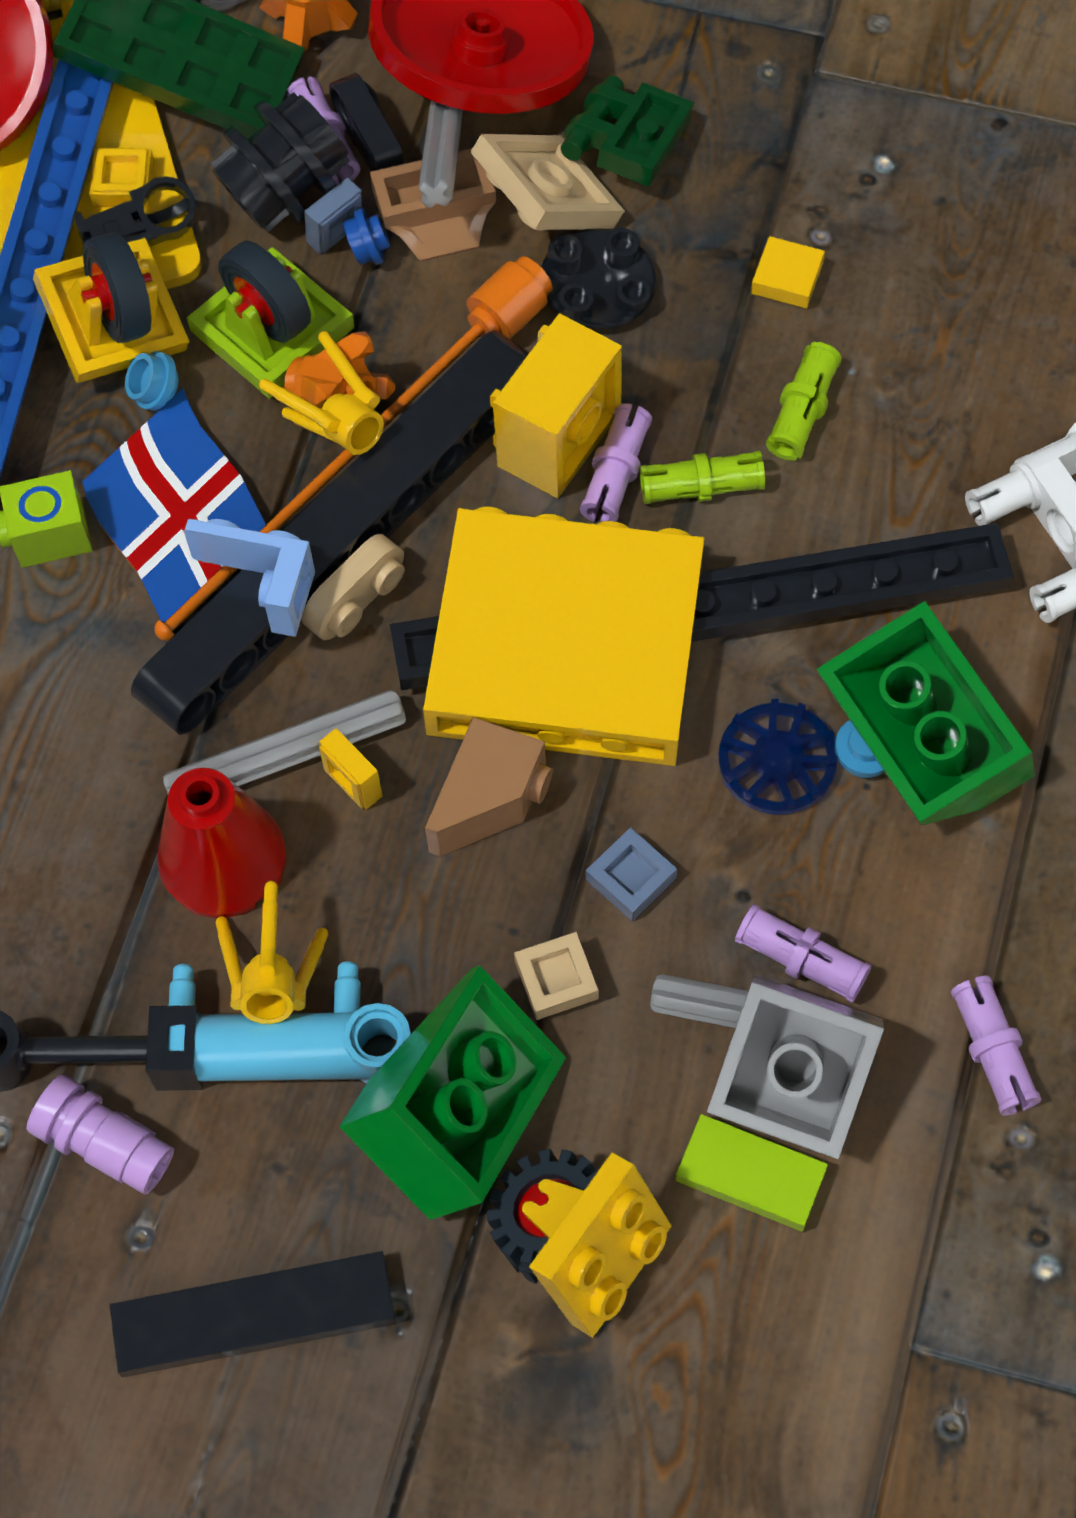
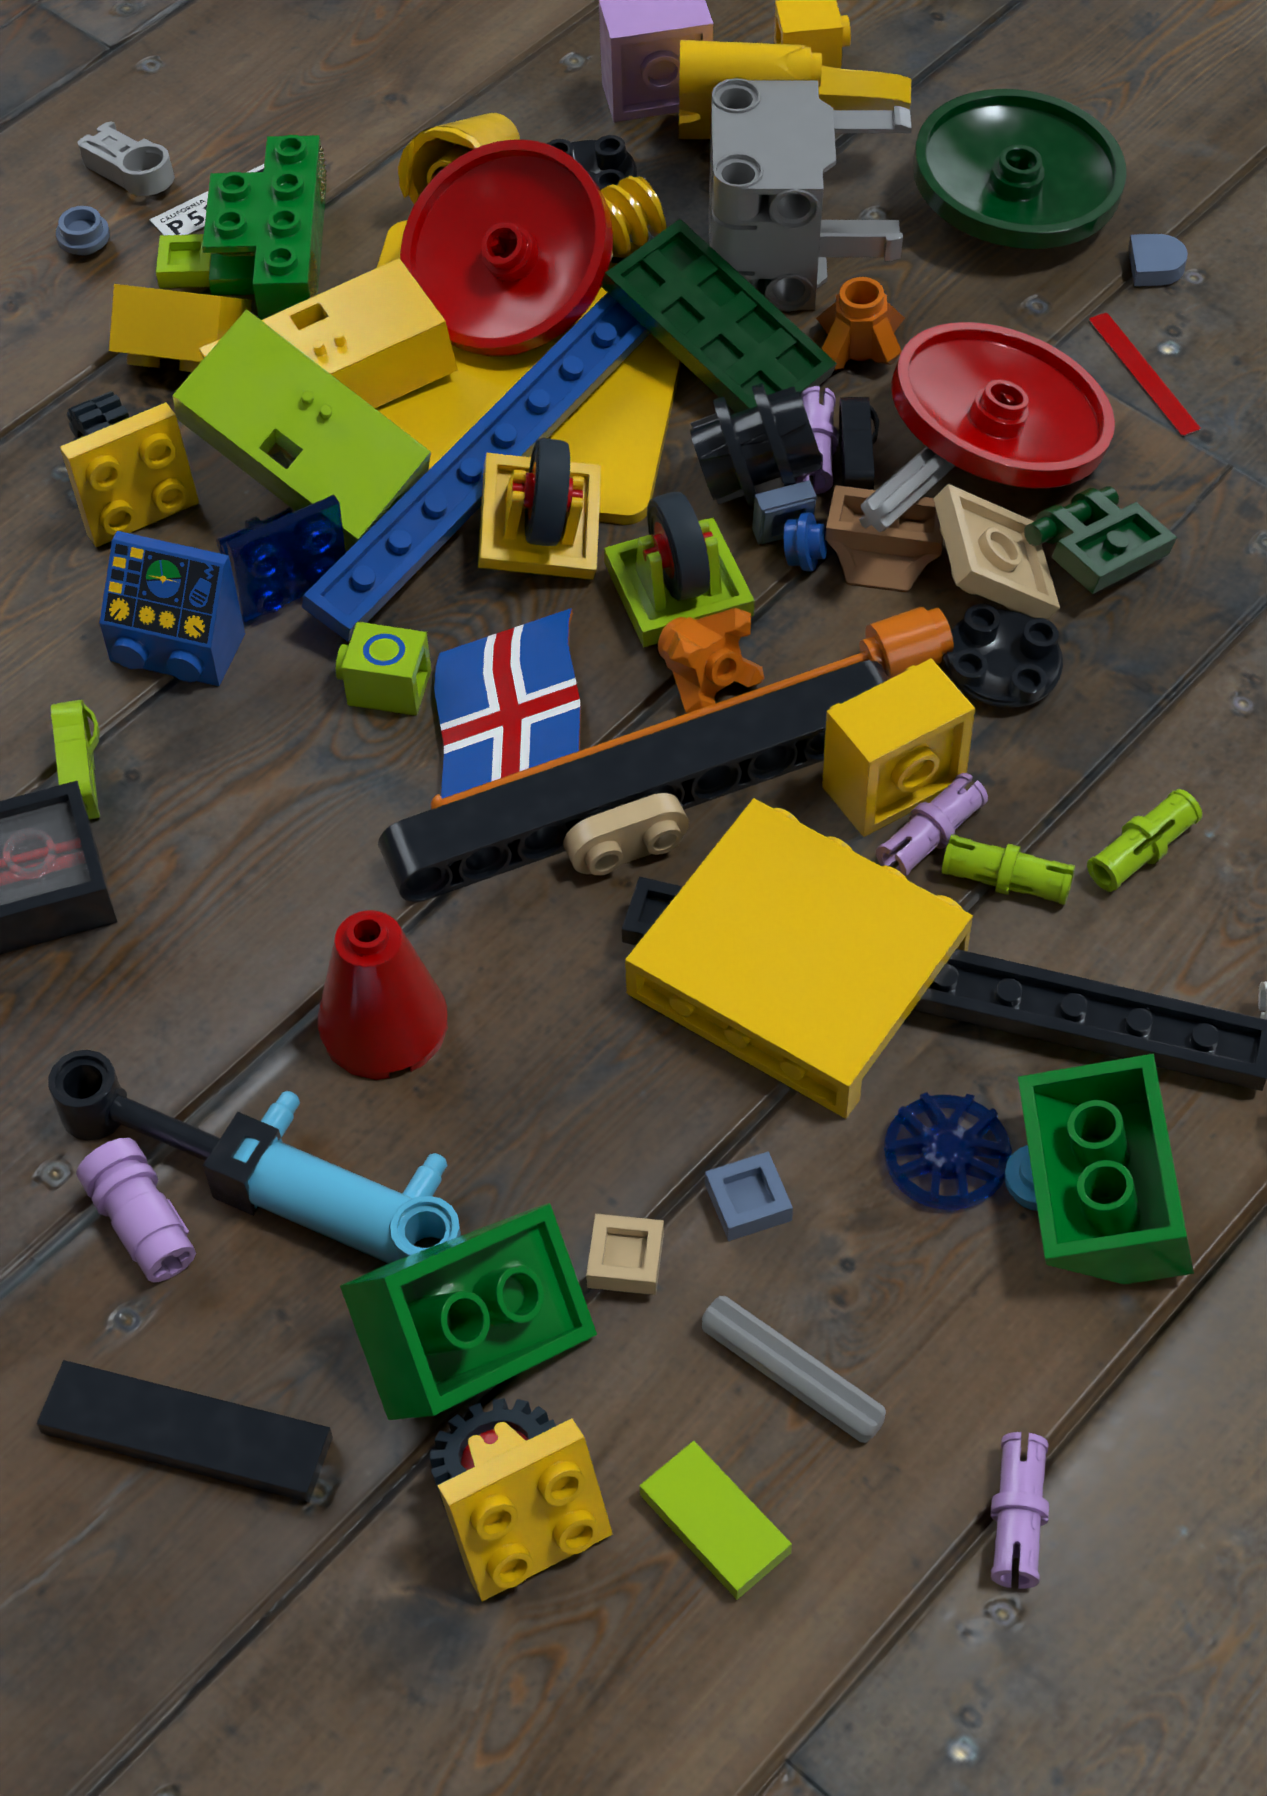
camera: 25 degrees right, 10 degrees down
(117, 173) = (613, 412): yellow tile -> none
(132, 222) = (600, 446): black piece -> none
(152, 380) = (545, 589): dark azure plate -> none
(268, 985) = (352, 1134): yellow plant -> none
(278, 555) = (563, 775): light blue bracket -> none
(301, 741) = (513, 950): light grey axle -> none
(343, 418) = (689, 677): yellow plant -> none
(350, 769) = (535, 989): yellow tile -> none
(487, 787) = (650, 1058): medium nougat slope -> none
(788, 272) = (1191, 721): yellow tile -> none
(796, 1066) = (801, 1430): light grey brick -> none
(802, 953) = (873, 1338): lavender pin -> none

